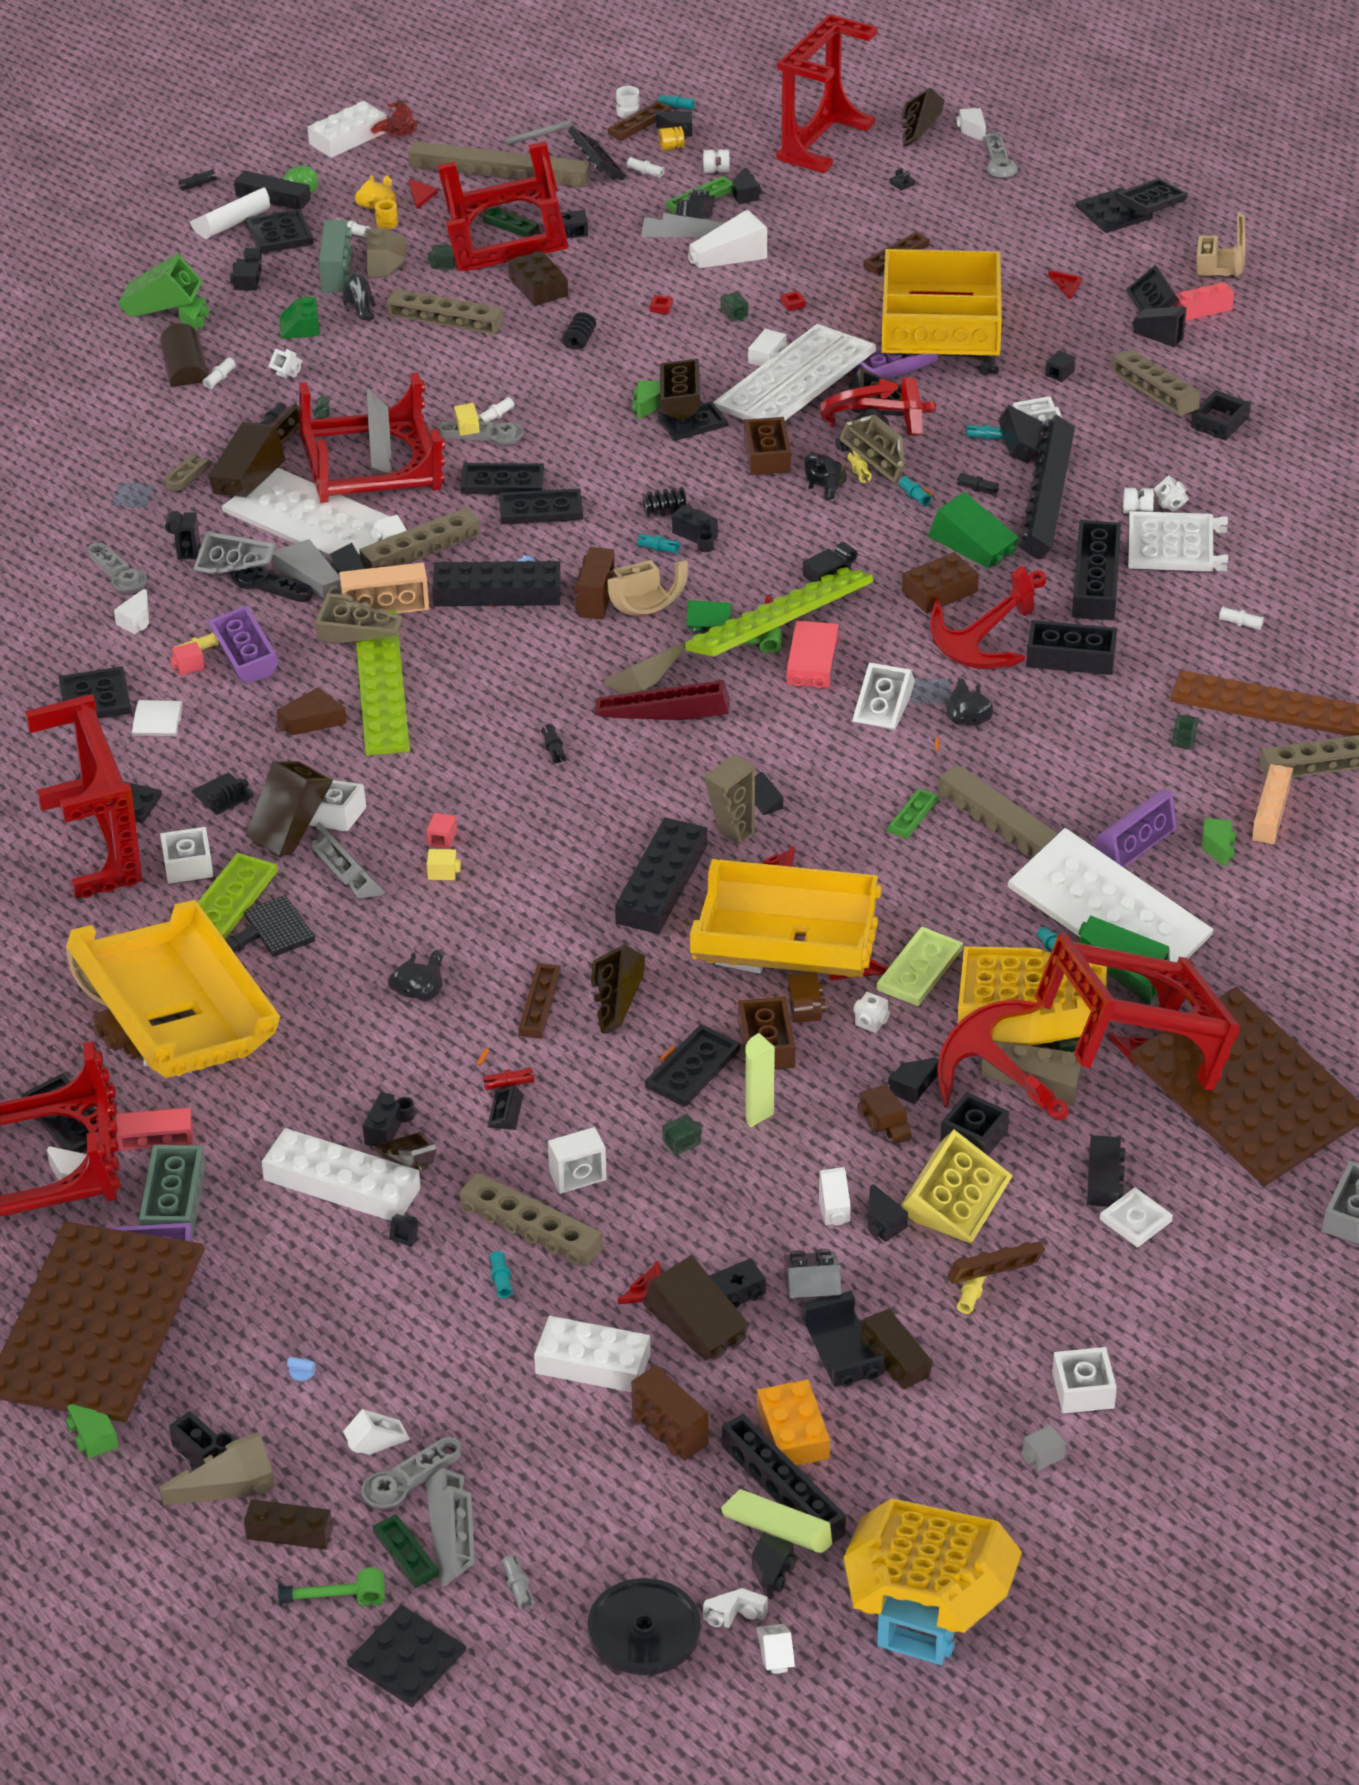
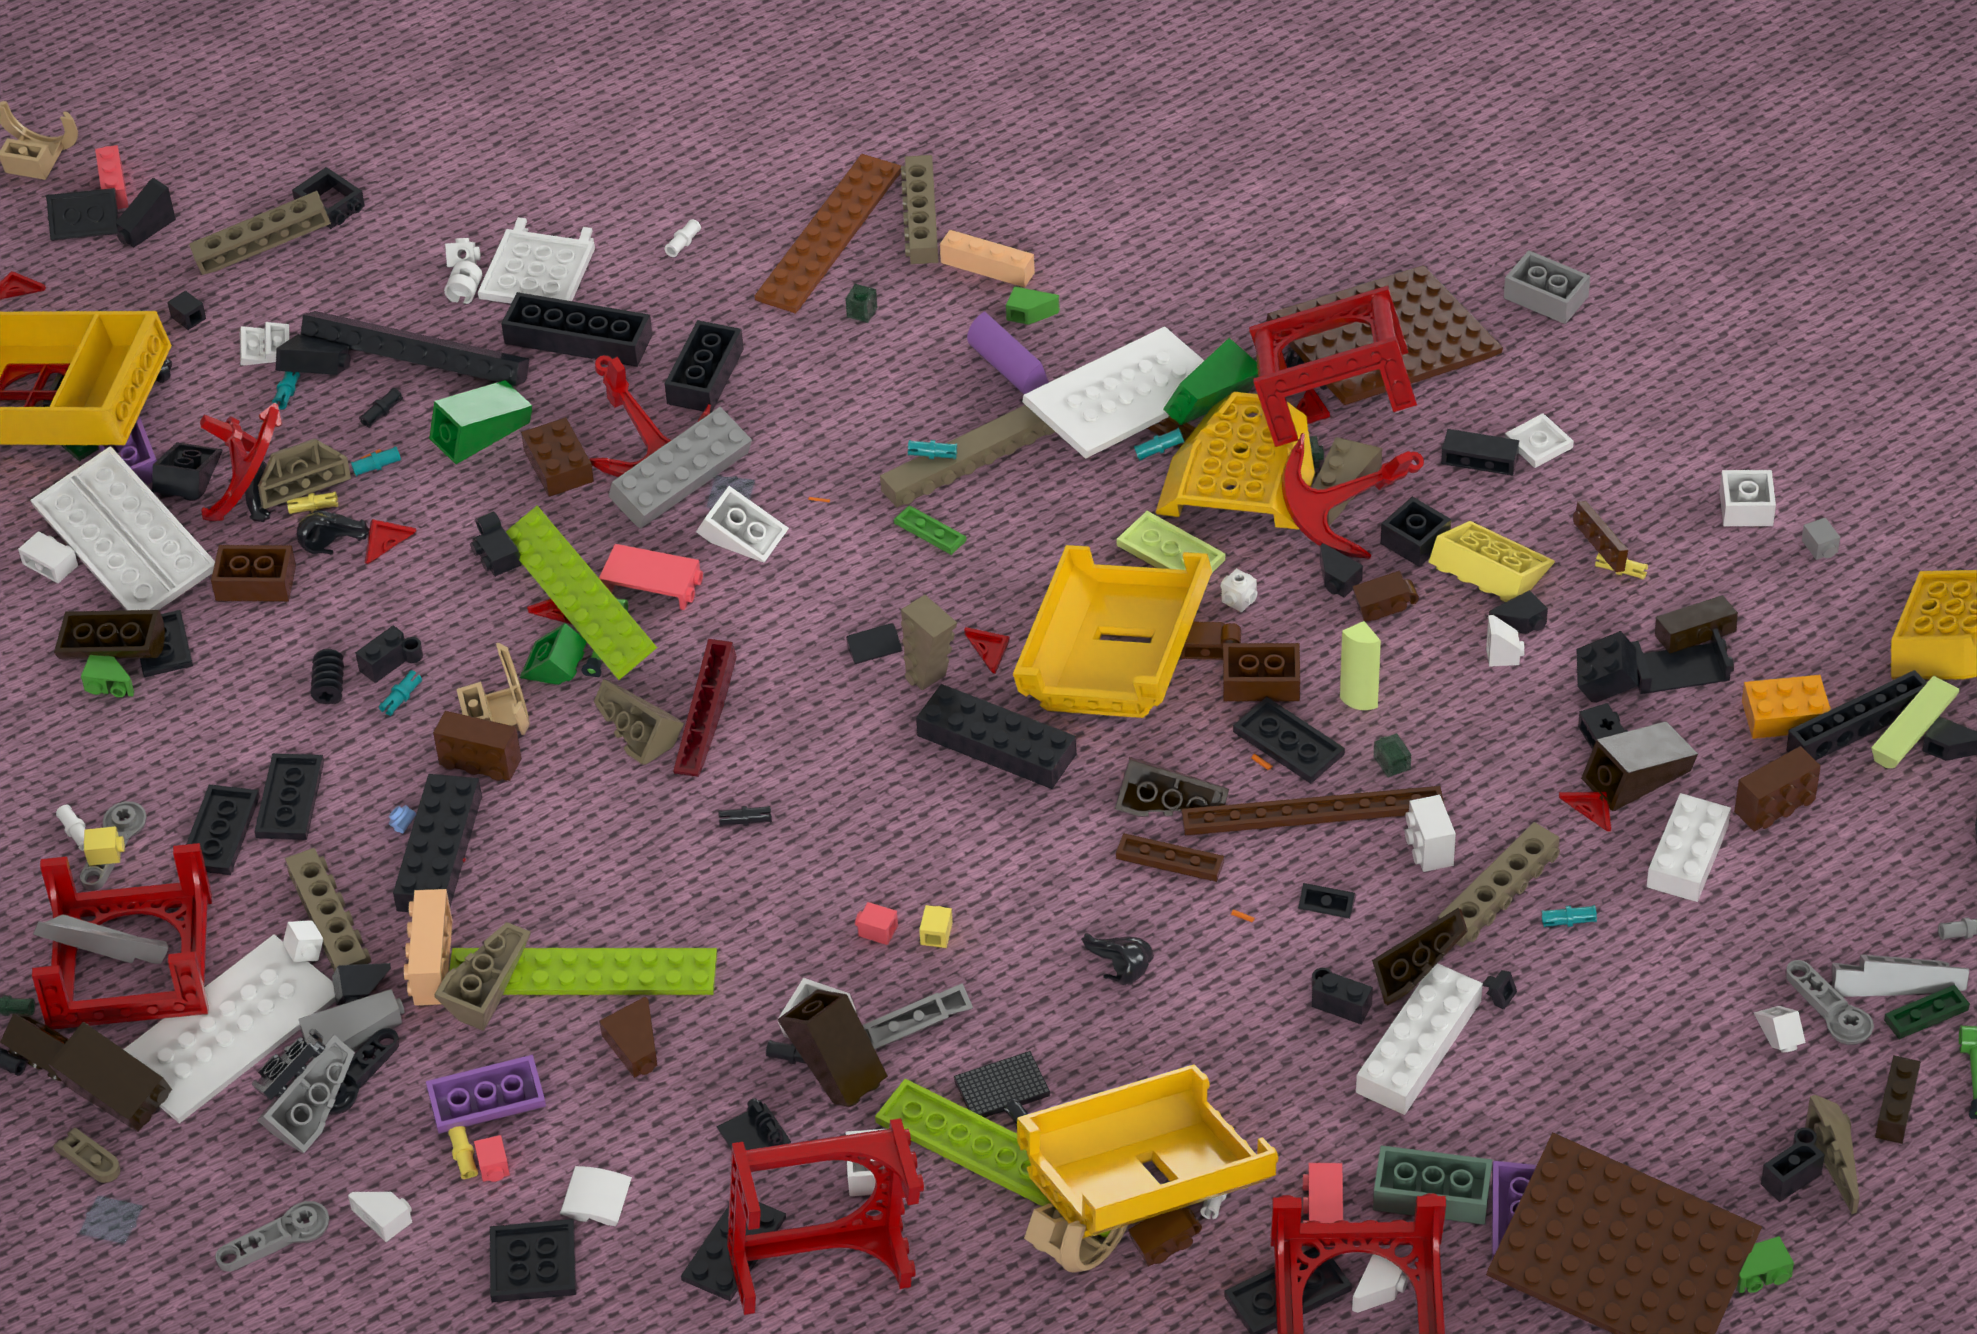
camera: 80 degrees left, 5 degrees up
(185, 532) = (249, 1145): black hinge -> none
(250, 532) = (280, 1070): none -> black plate
(301, 1369) = (1685, 1086): light blue plate -> none
(508, 1078) = (1286, 892): red pin -> none
(609, 1090) = (1303, 811): none -> reddish brown plate
(827, 508) = (384, 537): none -> red tile
(939, 648) = (679, 467): none -> light grey brick
(967, 706) = (778, 463): black piece -> none
(991, 787) = (932, 449): none -> teal pin

